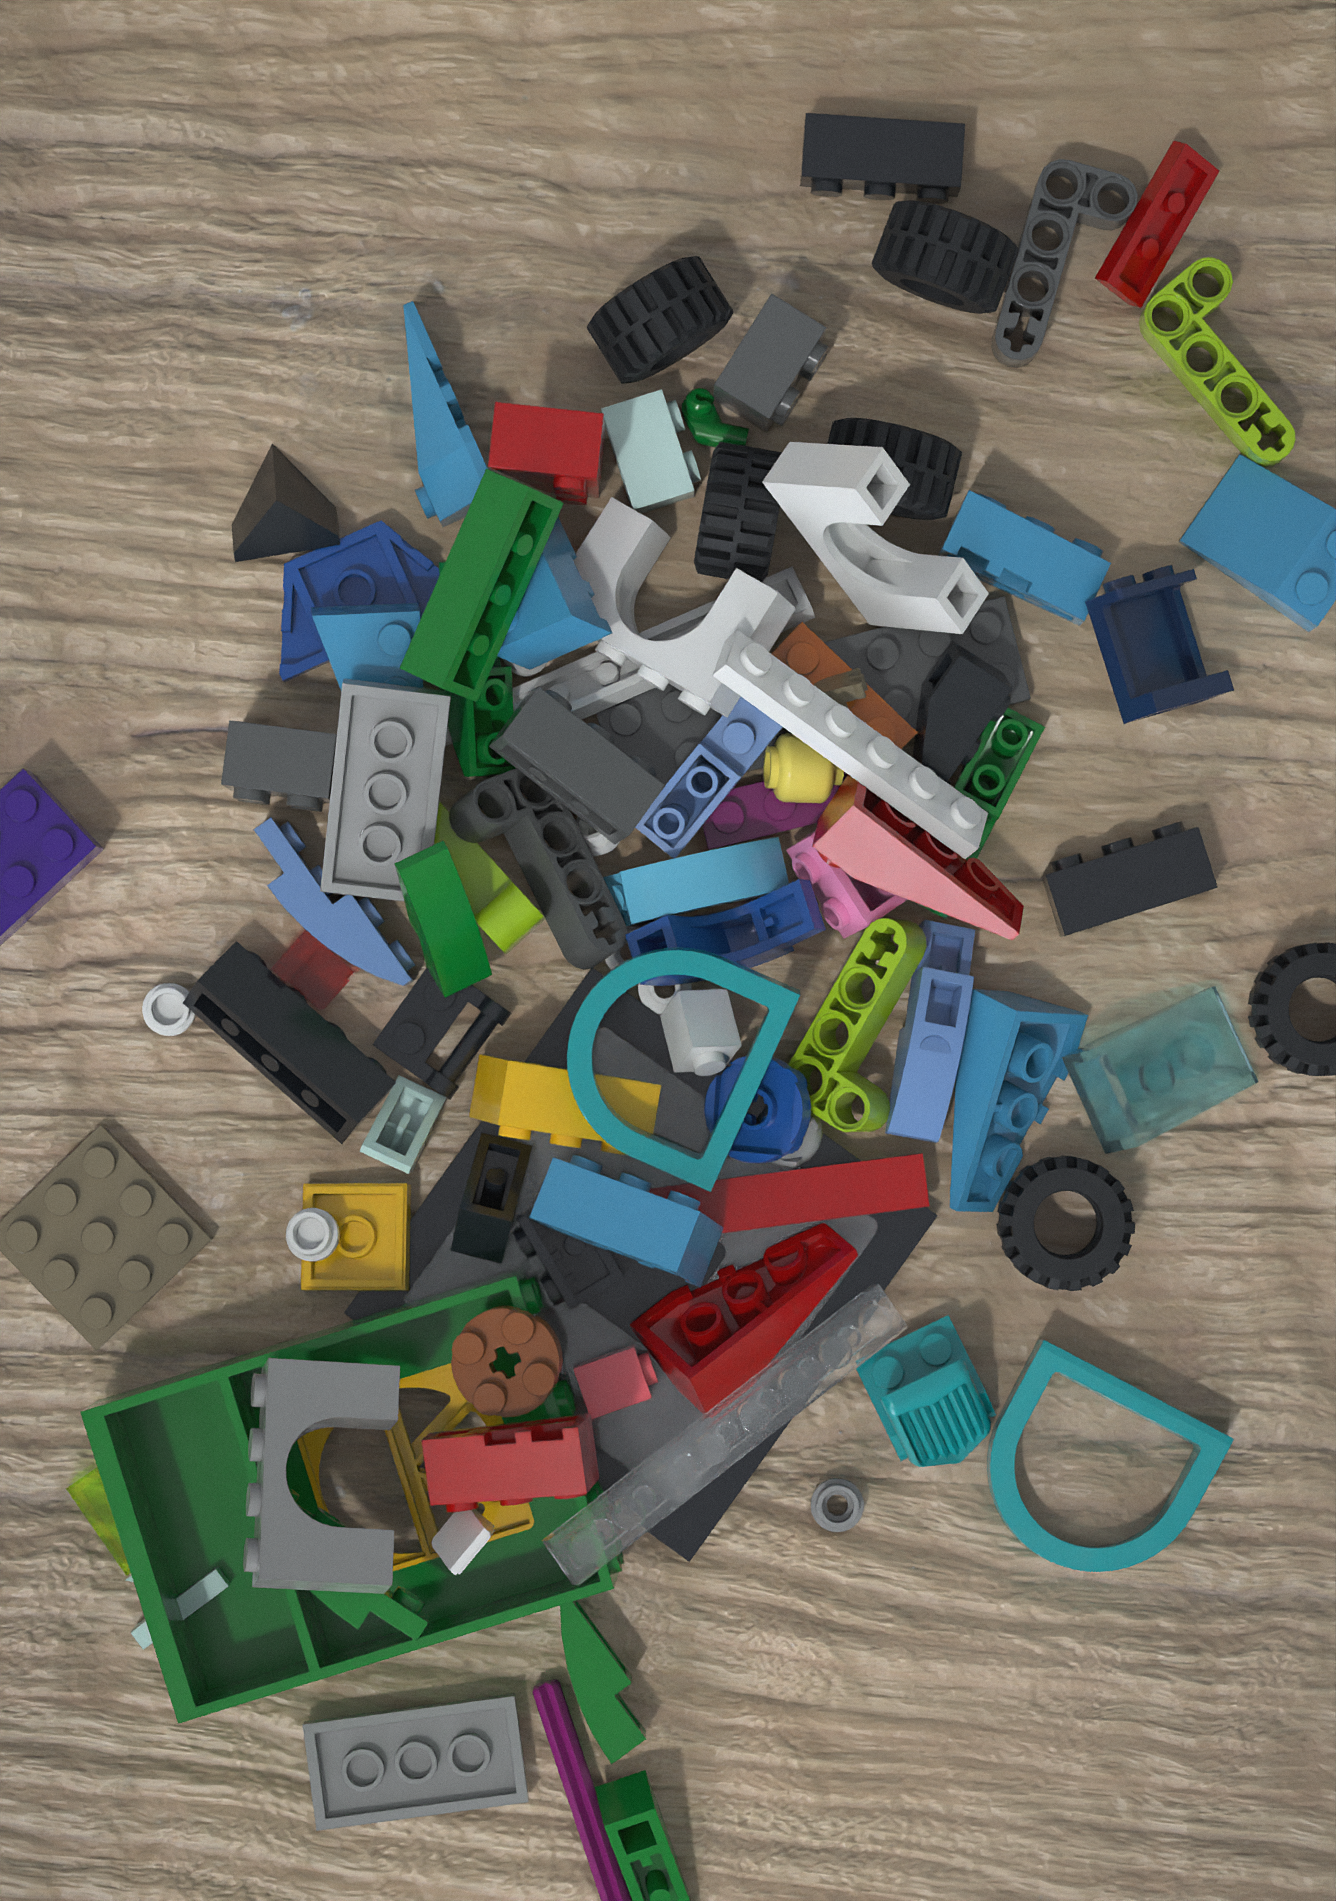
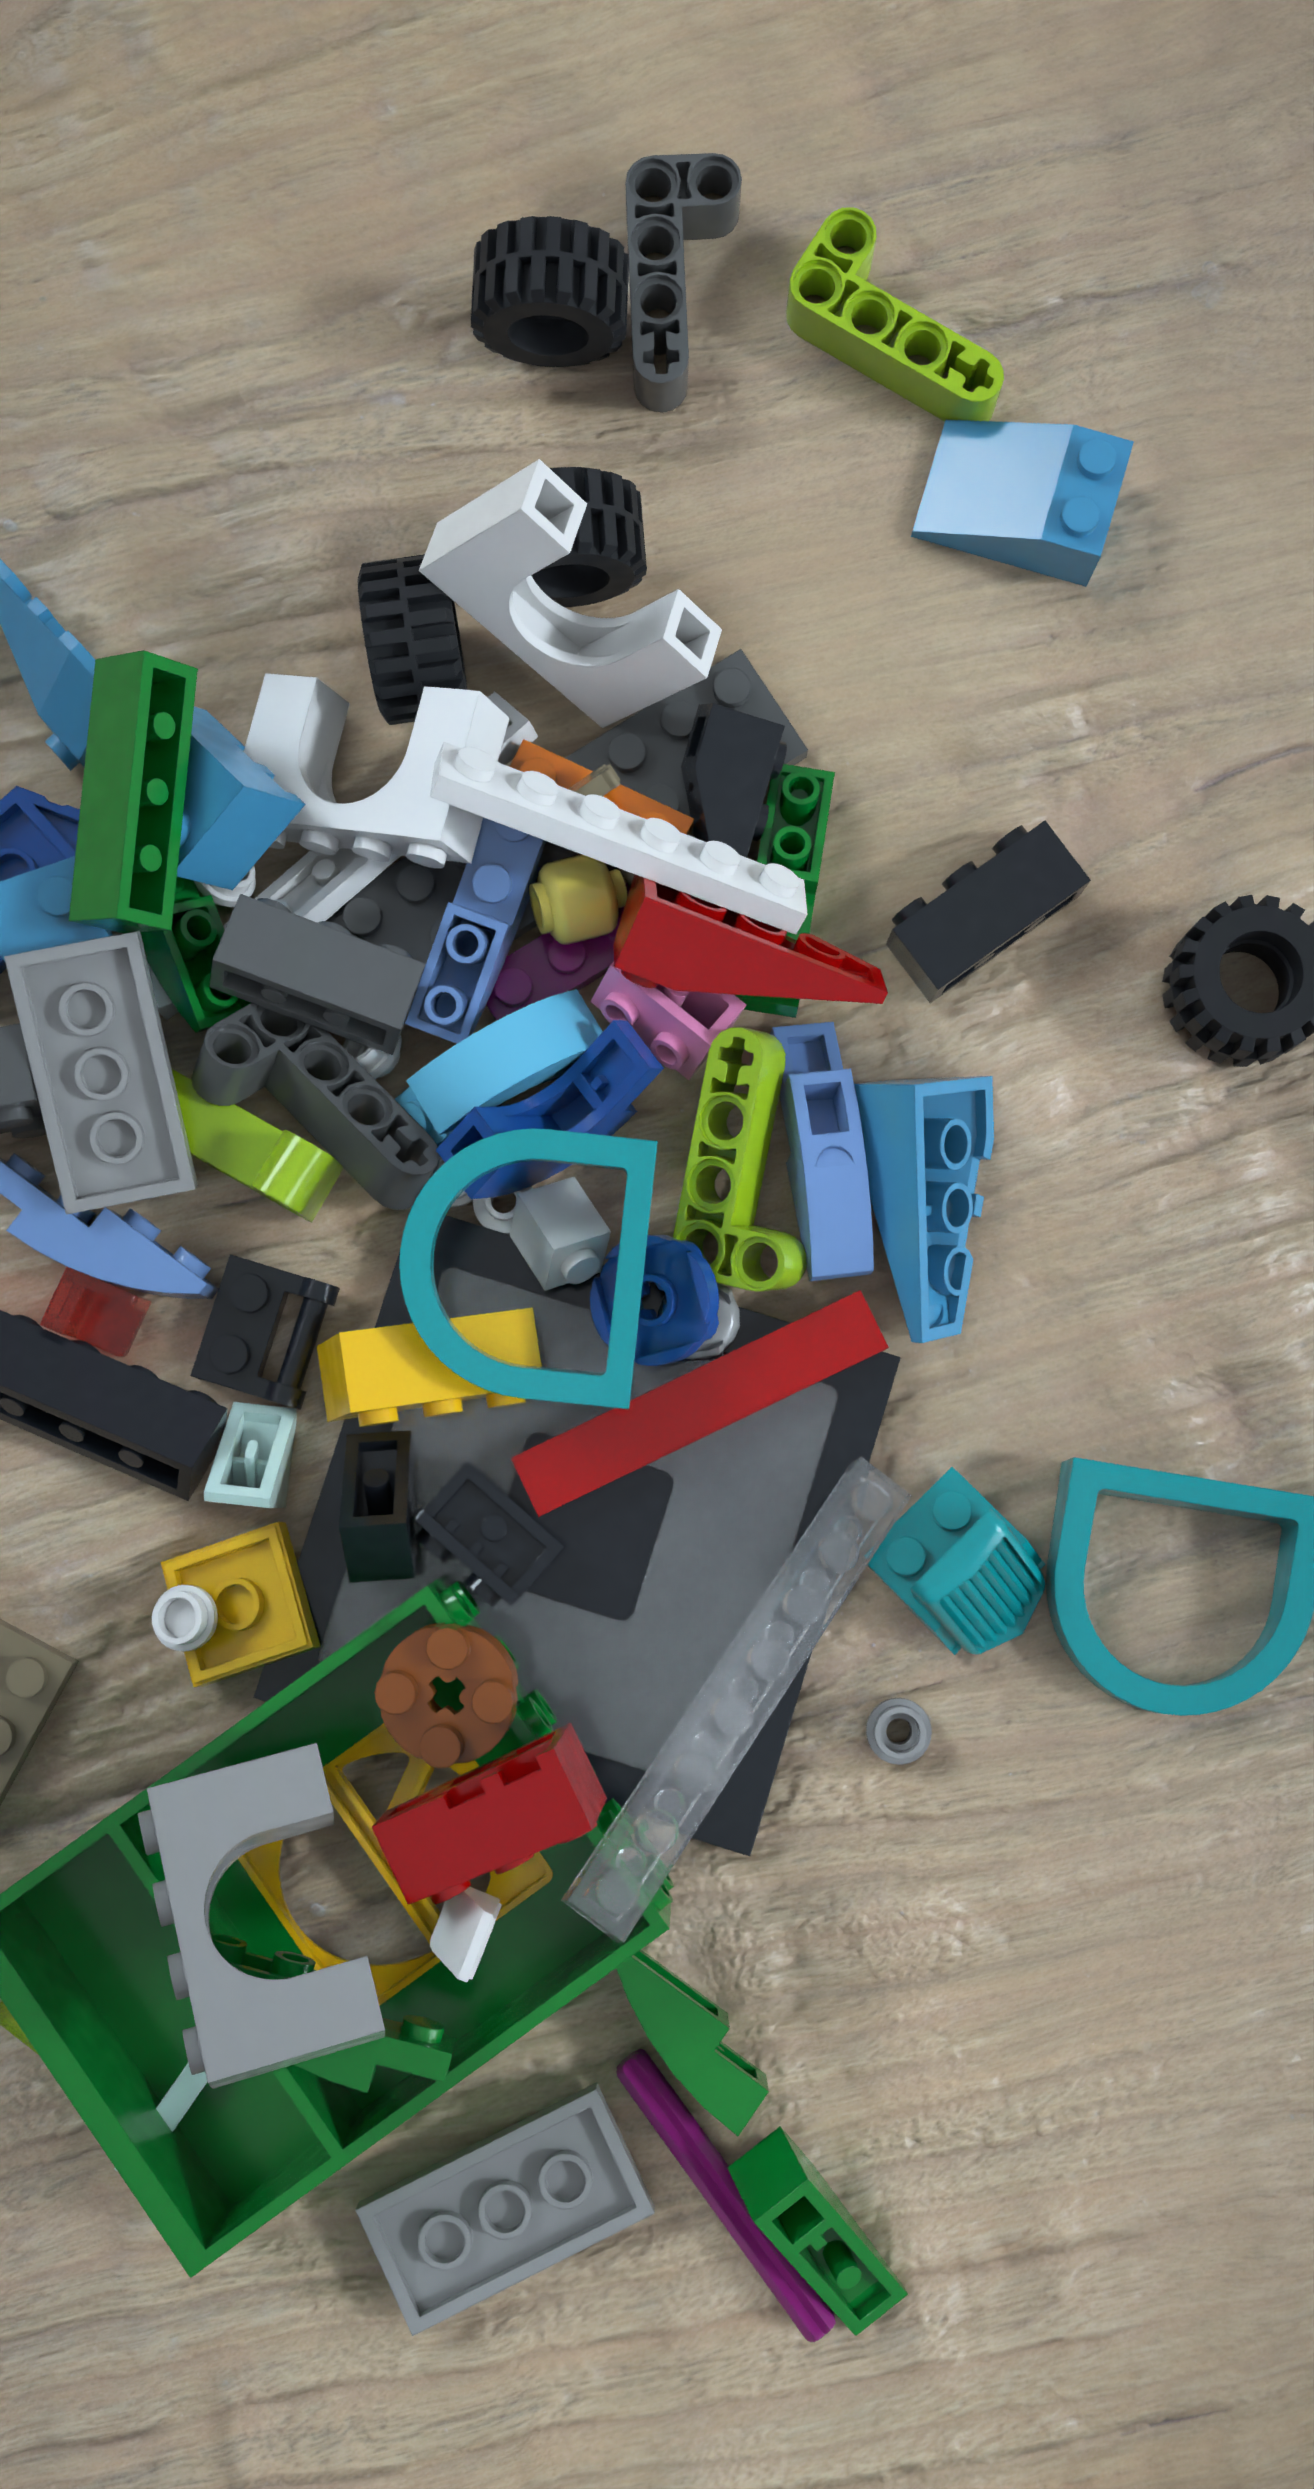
camera: 15 degrees left, 5 degrees down
(443, 919) = (214, 1195): green slope -> none
(550, 449) = (178, 612): red wedge -> none
(615, 1380) = (592, 1672): coral brick -> none
(627, 1218) = (542, 1474): dark azure wedge -> none
(649, 451) = (292, 614): light aqua brick -> none
(660, 319) = (254, 458): black tyre -> none
(706, 423) = (339, 562): green arm -> none
(737, 1324) = (714, 1557): red wedge -> none
(770, 363) = (395, 470): dark grey brick -> none
(882, 157) = (432, 223): black brick -> none
(1026, 557) = (753, 591): dark azure wedge -> none
(1111, 1234) = (1102, 1302): black tyre -> none
(1152, 645) = (921, 642): dark blue panel -> none
(1157, 224) = (771, 203): red plate -> none
(1160, 1071) = (1094, 1112): clear light blue slope -> none

